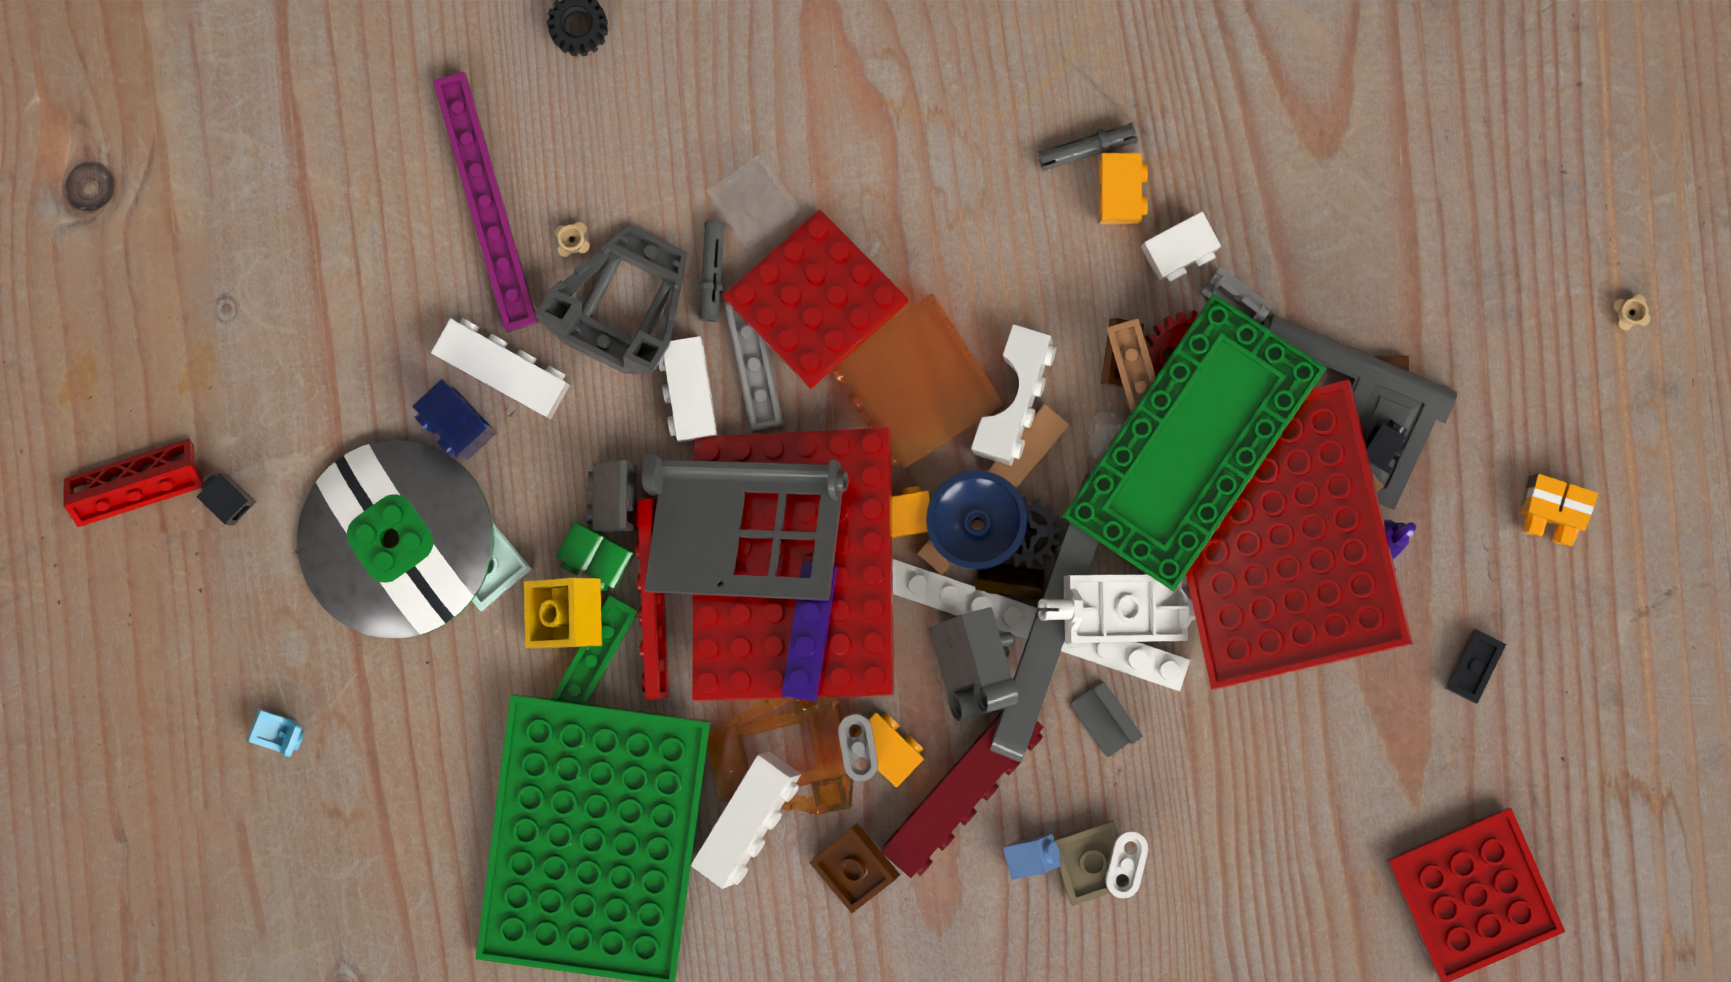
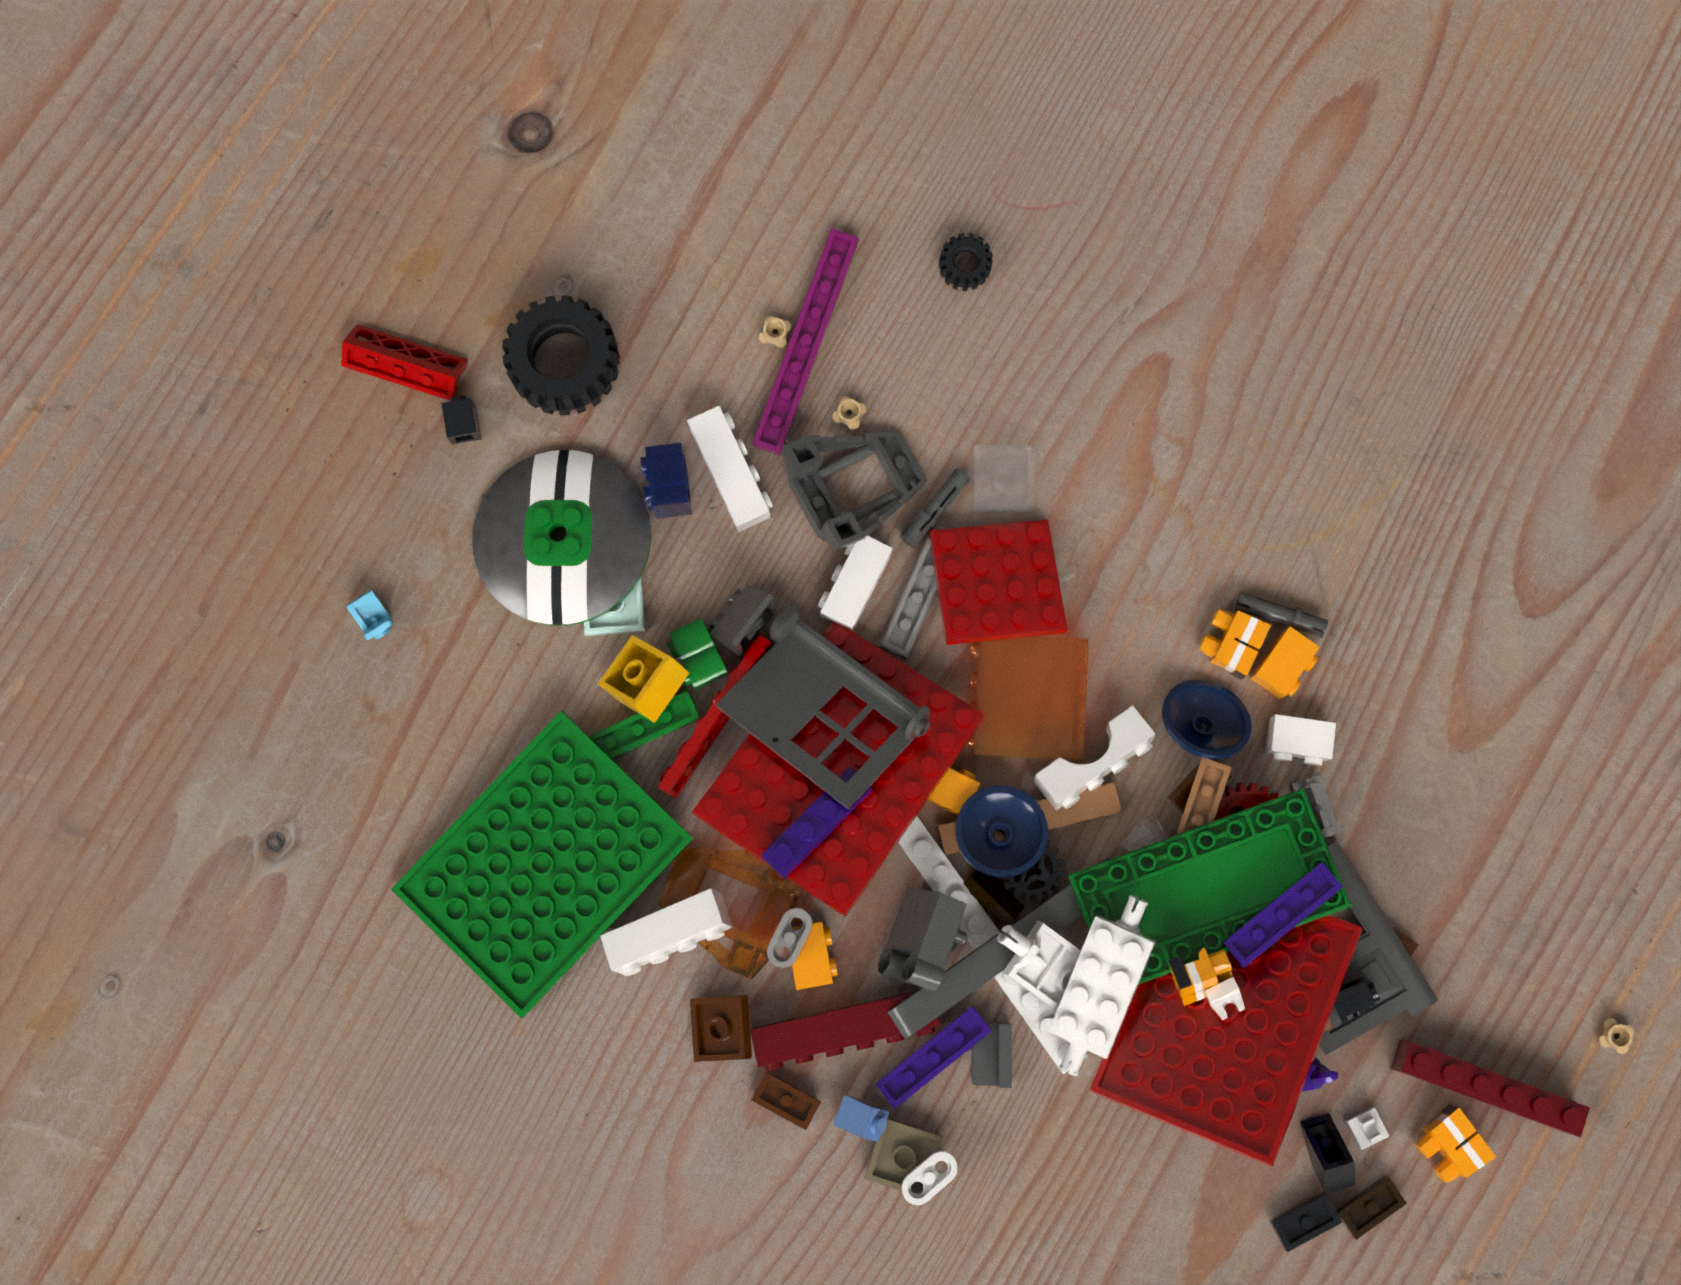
camera: 35 degrees right, 5 degrees down
(231, 363) = (552, 319): none -> black tyre
(442, 208) = (778, 324): none -> tan plate
(956, 888) = (786, 1100): none -> reddish brown plate
(1057, 758) = (933, 1057): none -> dark purple plate
(1067, 201) = (1238, 644): none -> light orange hips
(1082, 278) = (1206, 719): none -> dark blue dish
(1159, 592) = (1102, 985): none -> white plate
(1239, 523) = (1199, 975): none -> light orange hips
(1268, 525) = (1222, 994): none -> white tile
(1271, 419) = (1282, 914): none -> dark purple plate
(1454, 594) = (1328, 1153): none -> black slope
(1472, 547) = (1366, 1128): none -> white tile
(1522, 613) = (1371, 1207): none -> dark brown plate
(1554, 437) = (1490, 1088): none -> dark red brick

